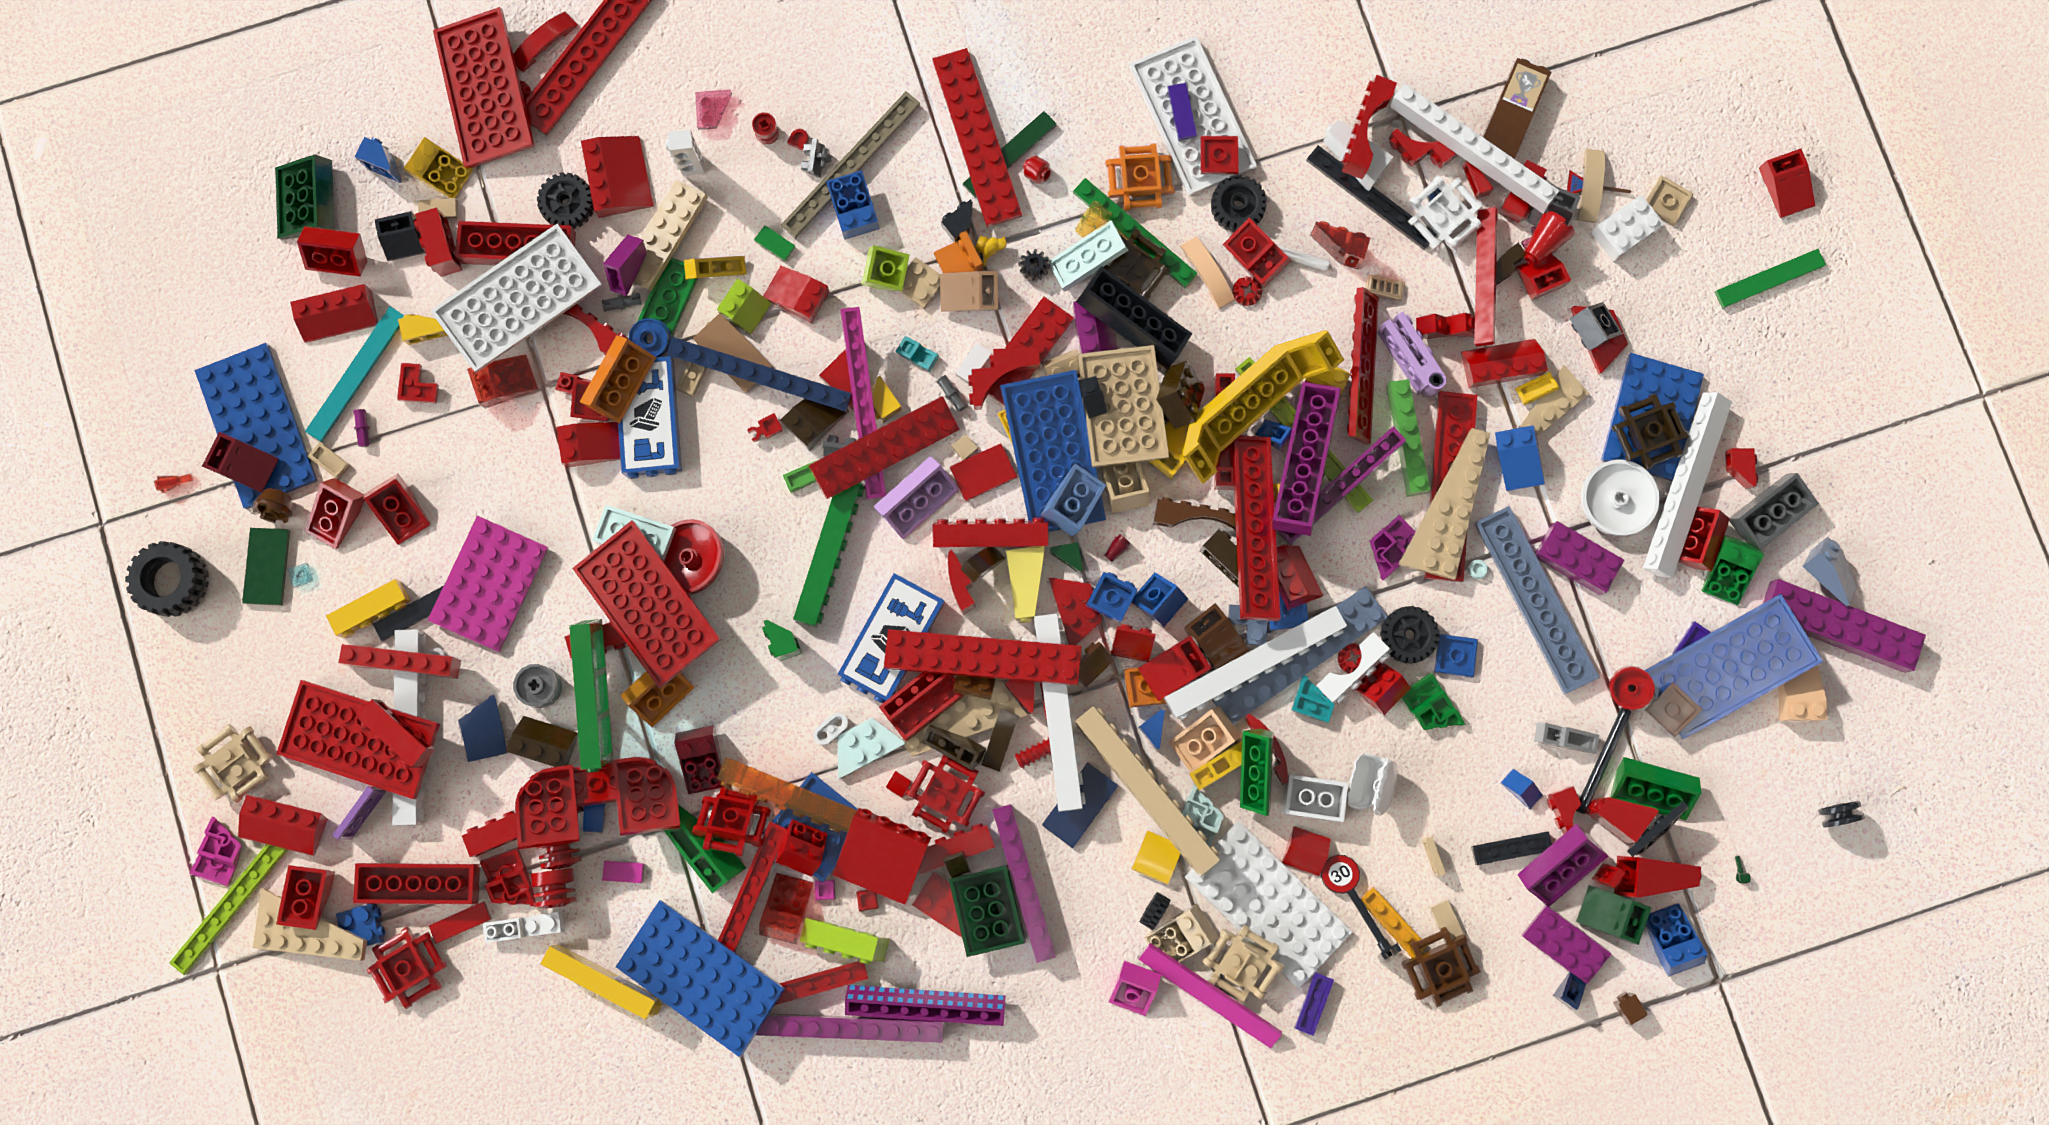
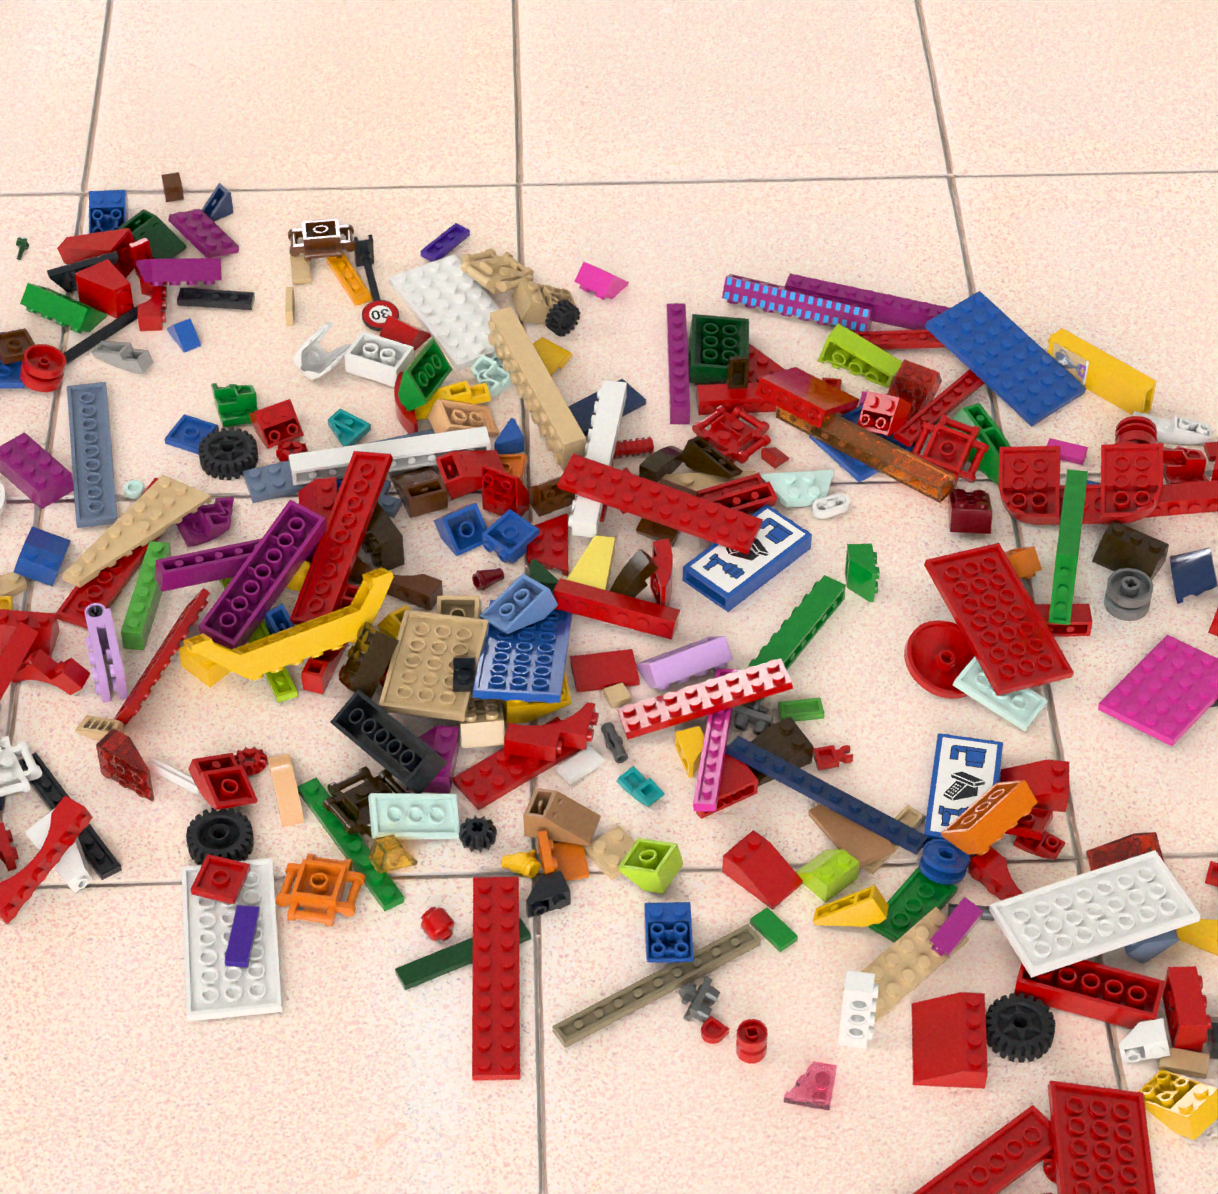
camera: 165 degrees left, 35 degrees down
(465, 208) = (1145, 1042): none -> white slope
(1210, 995) = (536, 263): dark pink tile -> none
(1373, 653) = (317, 428): white arch -> none

